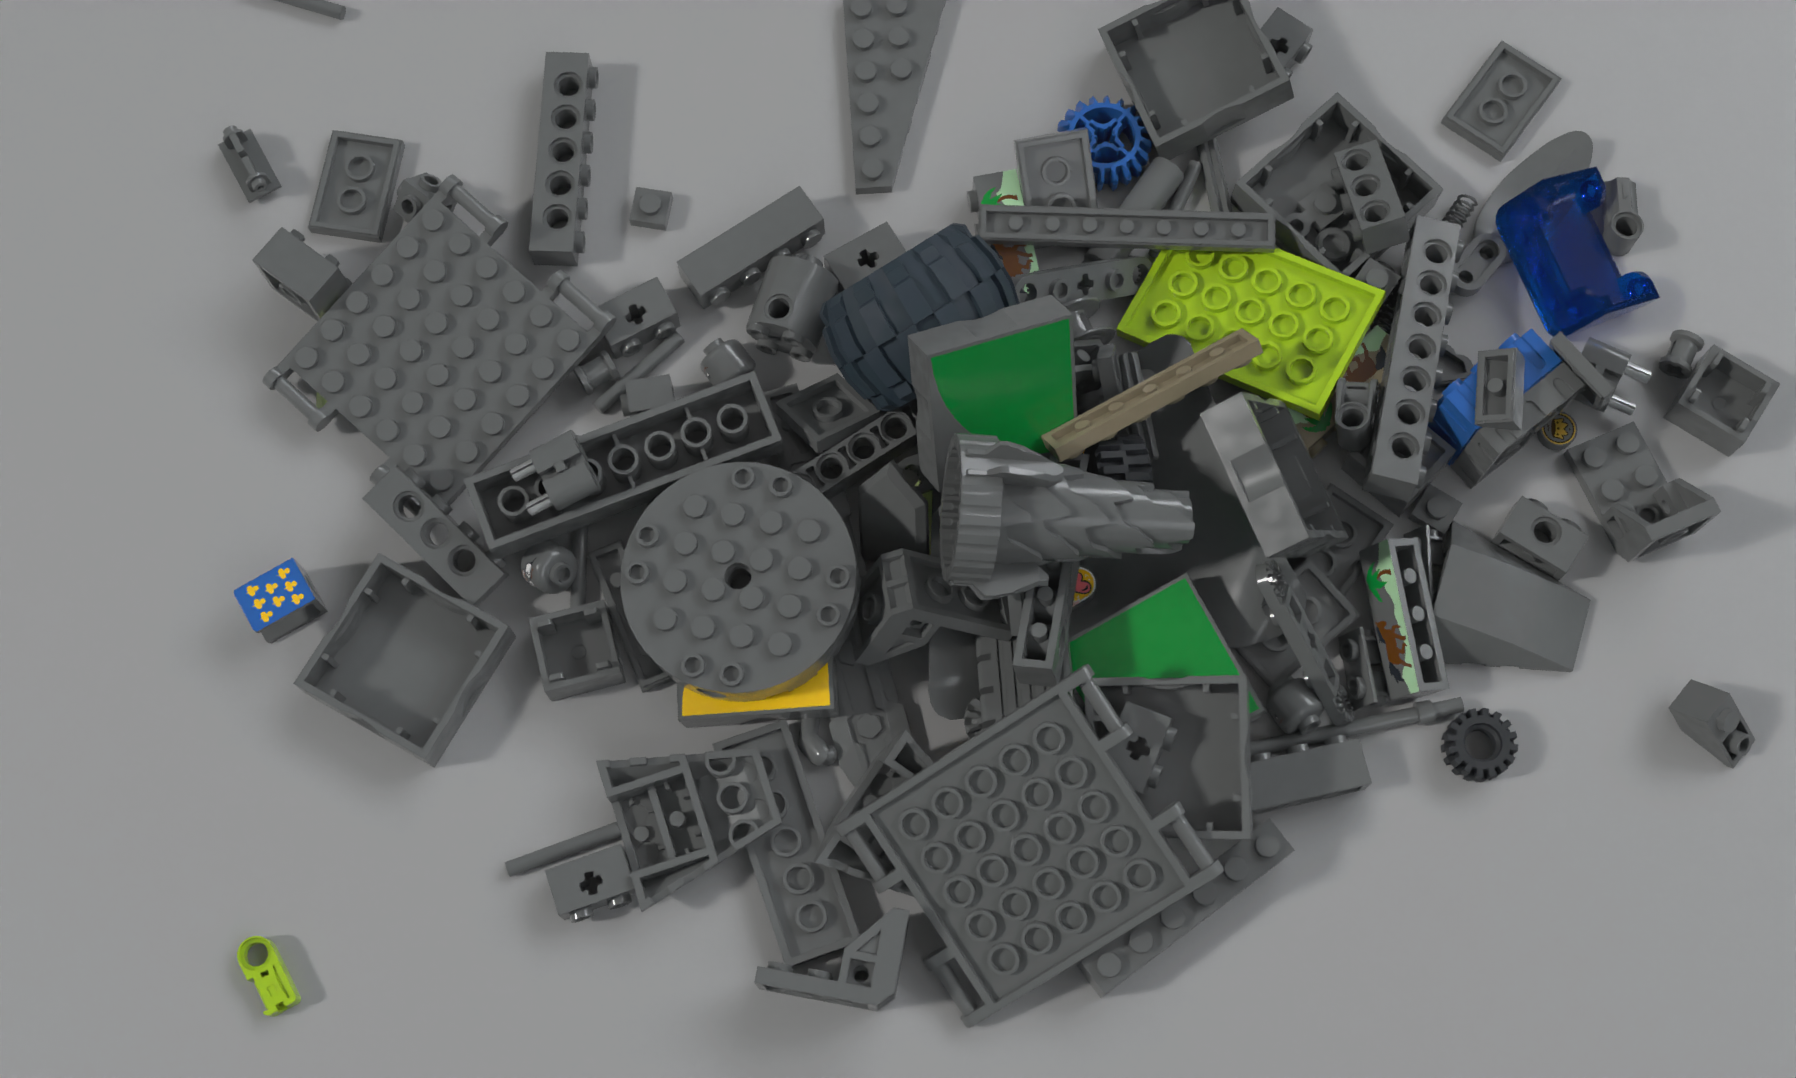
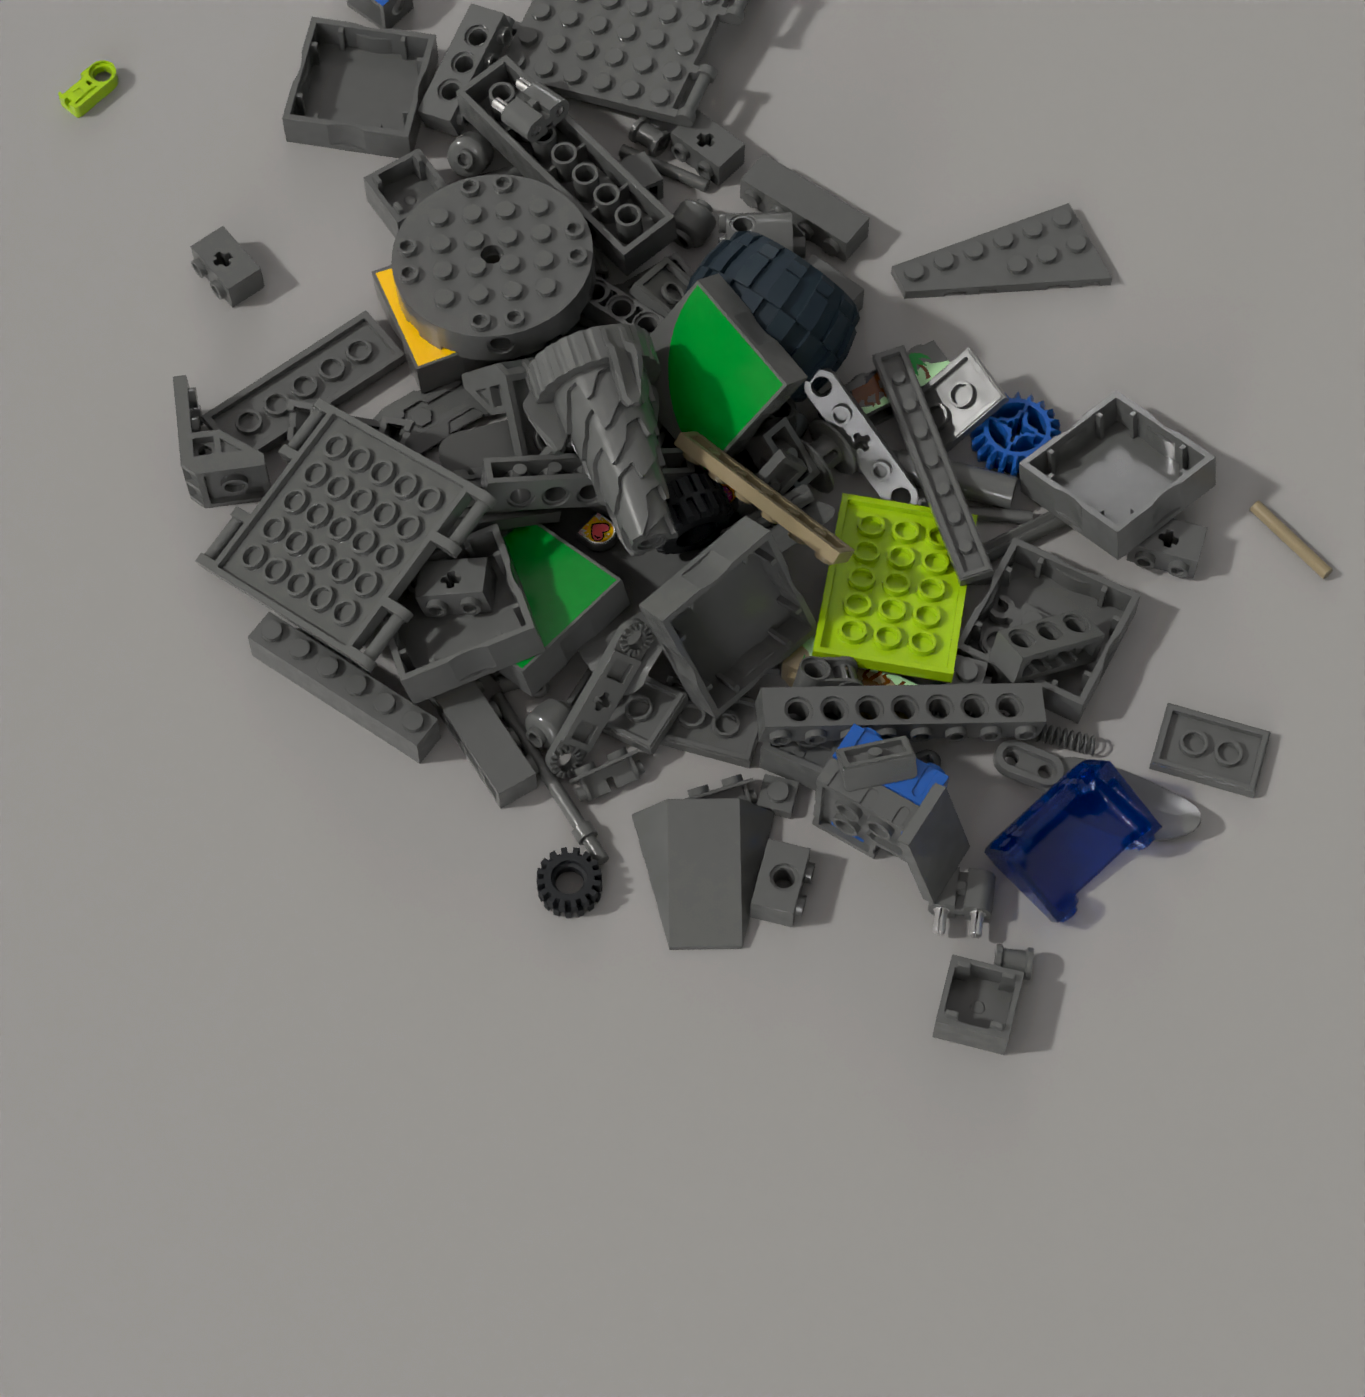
camera: 70 degrees right, 10 degrees down
(562, 74) = (826, 53): dark grey brick -> none
(563, 849) = (249, 243): dark grey bar -> none
(651, 208) = (811, 131): dark grey plate -> none
(686, 813) = (300, 306): dark grey wedge -> none
(813, 745) = (393, 382): dark grey arm -> none
(1403, 619) = (657, 782): dark grey brick -> none
(1558, 432) = (895, 878): tile -> none
(1621, 214) = (1134, 875): dark grey piece -> none
(1633, 496) = (856, 953): dark grey bracket -> none
(1713, 722) = (658, 1071): dark grey slope -> none

